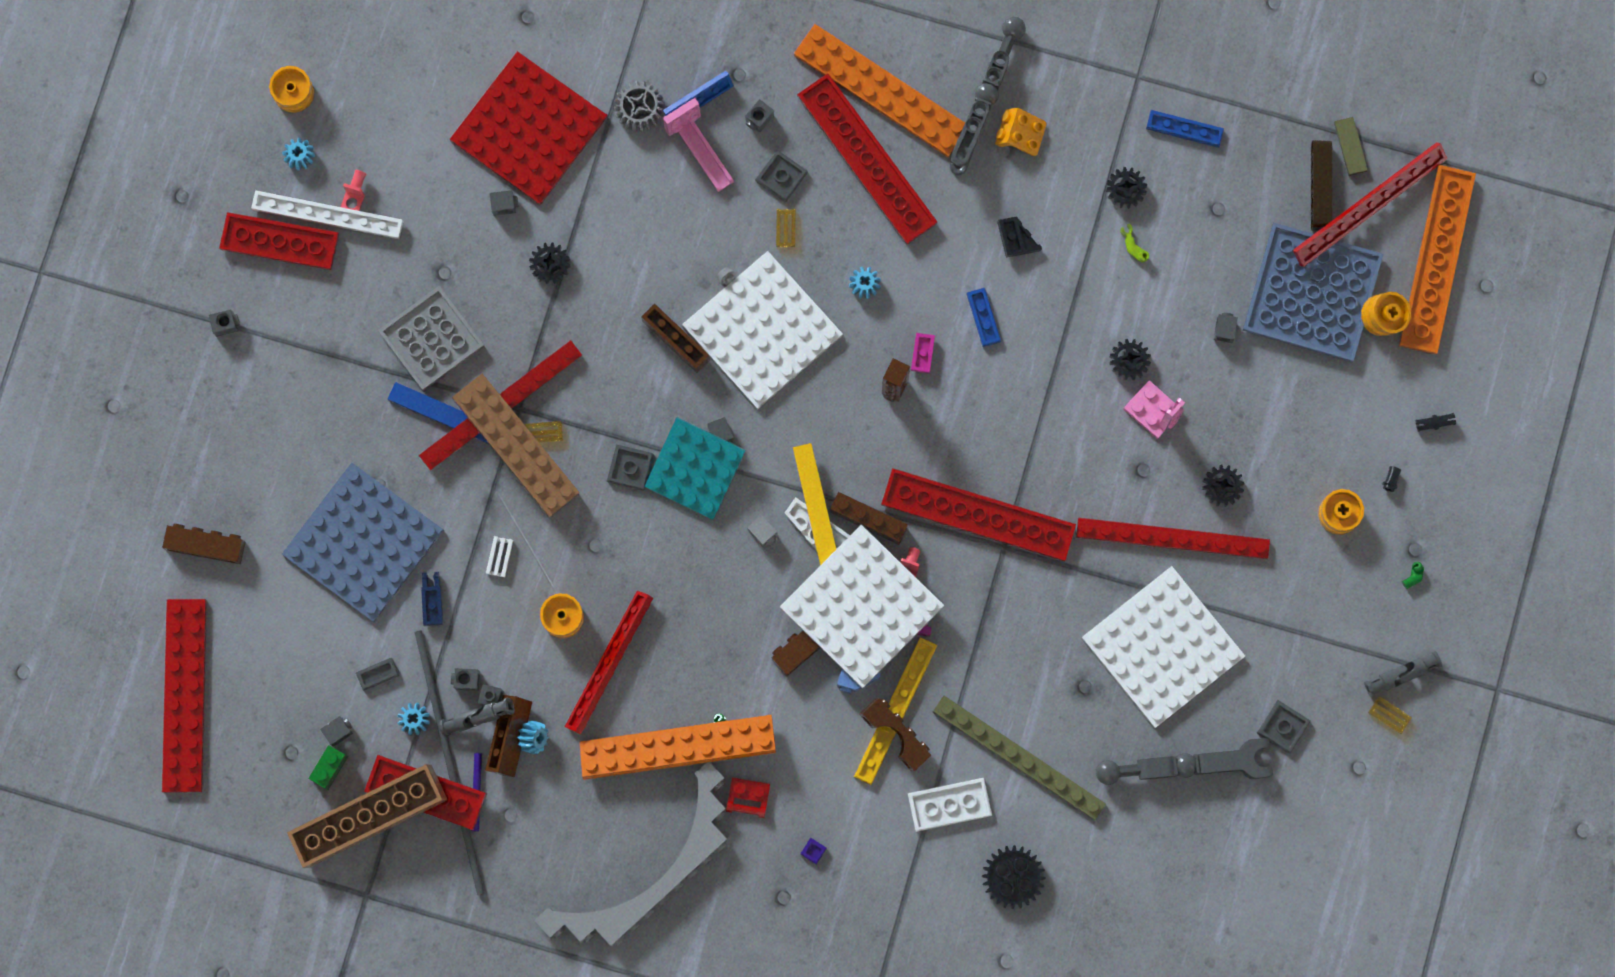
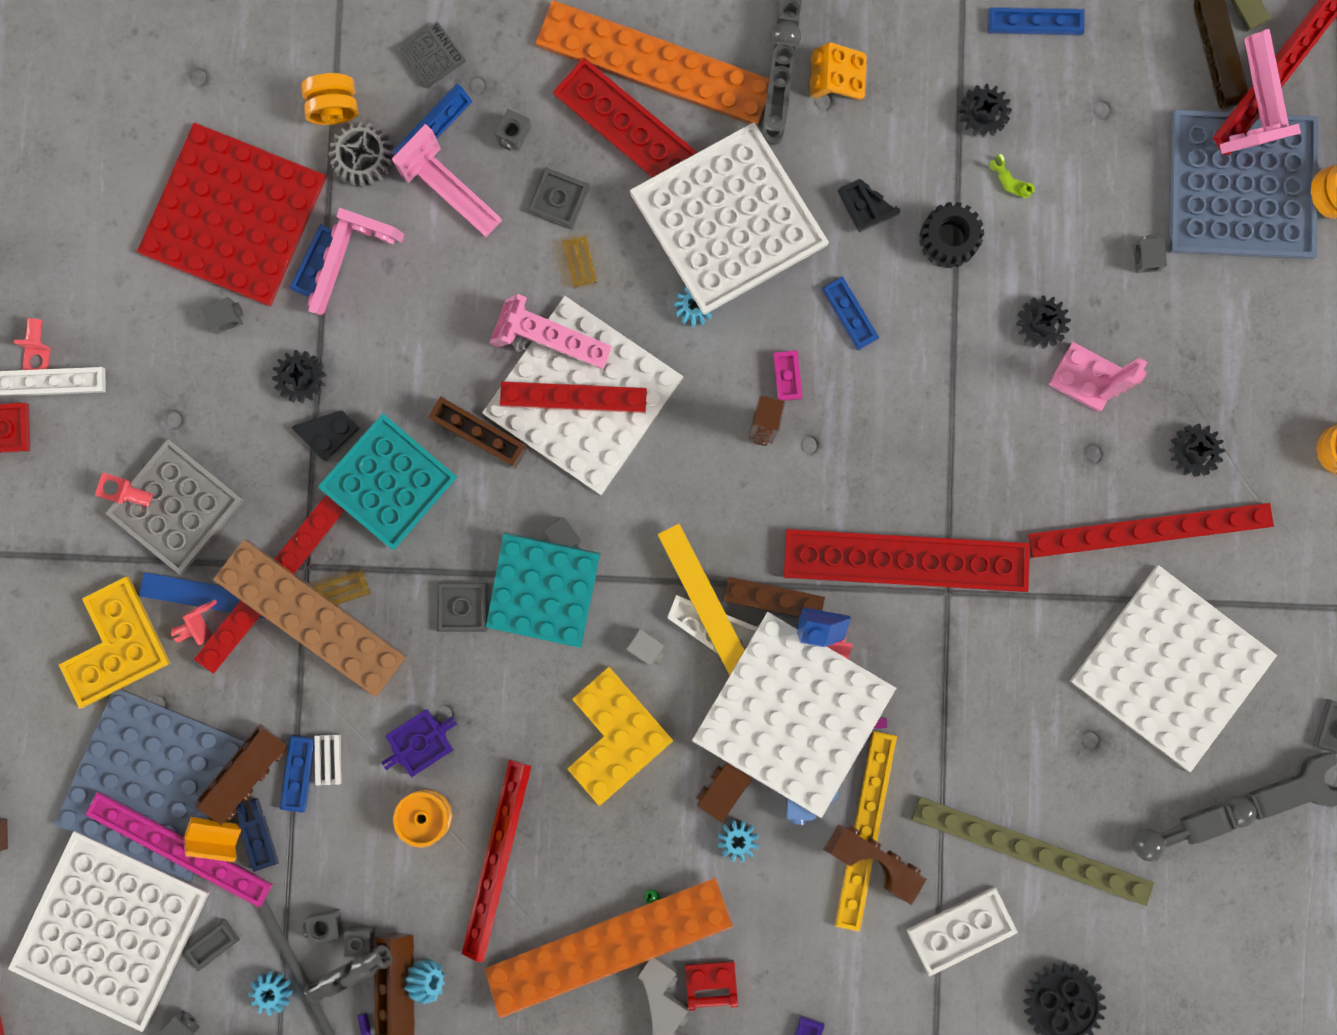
camera: 15 degrees left, 5 degrees up
(303, 643) = (109, 931): none -> white plate
(369, 437) = (127, 649): none -> yellow plate
(372, 594) = (171, 846): none -> dark pink tile
(398, 317) = (125, 491): none -> coral bracket
(399, 591) = (211, 840): none -> light orange panel
(424, 431) = (194, 625): none -> coral bracket
(433, 549) = (241, 774): none -> reddish brown brick
(474, 561) = (297, 774): none -> blue tile
(560, 311) = (327, 433): none -> black wing
(572, 560) = (419, 743): none -> dark purple plate
(584, 179) = (305, 278): none -> blue tile
(598, 358) = (387, 481): none -> teal plate
(600, 177) = (335, 253): none -> bright pink bracket
(626, 59) = (329, 99): none -> light orange wheel
(712, 43) = (432, 54): none -> dark grey tile
(726, 260) = (517, 321): none -> bright pink bracket
(732, 597) = (629, 738): none -> yellow plate
(754, 329) = (573, 397): none -> red plate
(793, 699) = (737, 849): none -> medium azure gear
(899, 545) = (821, 627): none -> blue slope
(907, 222) = (729, 218): none -> white plate
(1080, 261) = (960, 218): none -> black tyre
(1341, 231) = (1268, 97): none -> bright pink bracket

